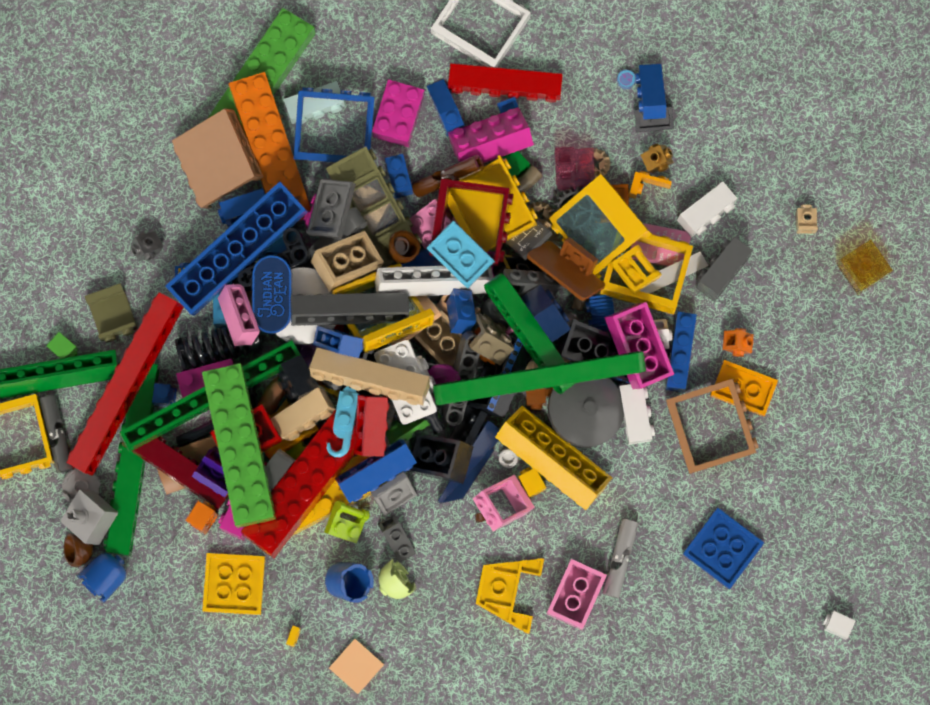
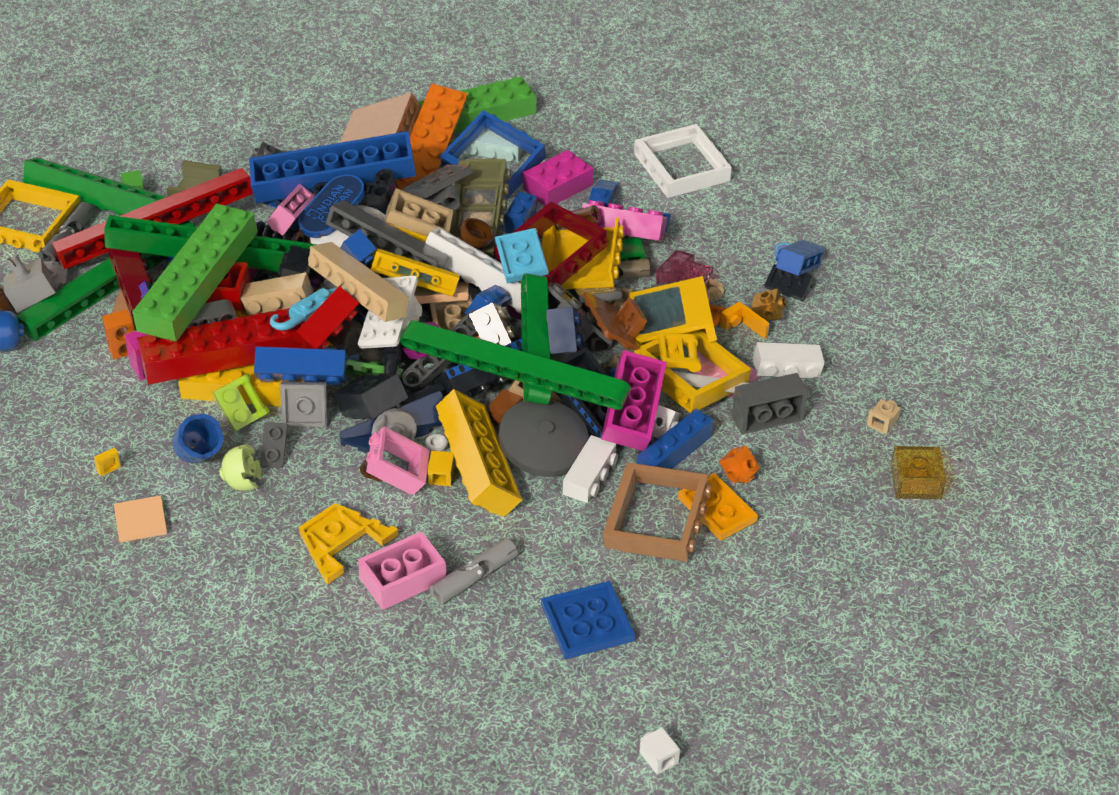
camera: 30 degrees right, 35 degrees down
(233, 584) = (98, 400): yellow plate -> none
(476, 475) = (398, 421): none -> light grey tile
(505, 82) = (665, 198): red brick -> none

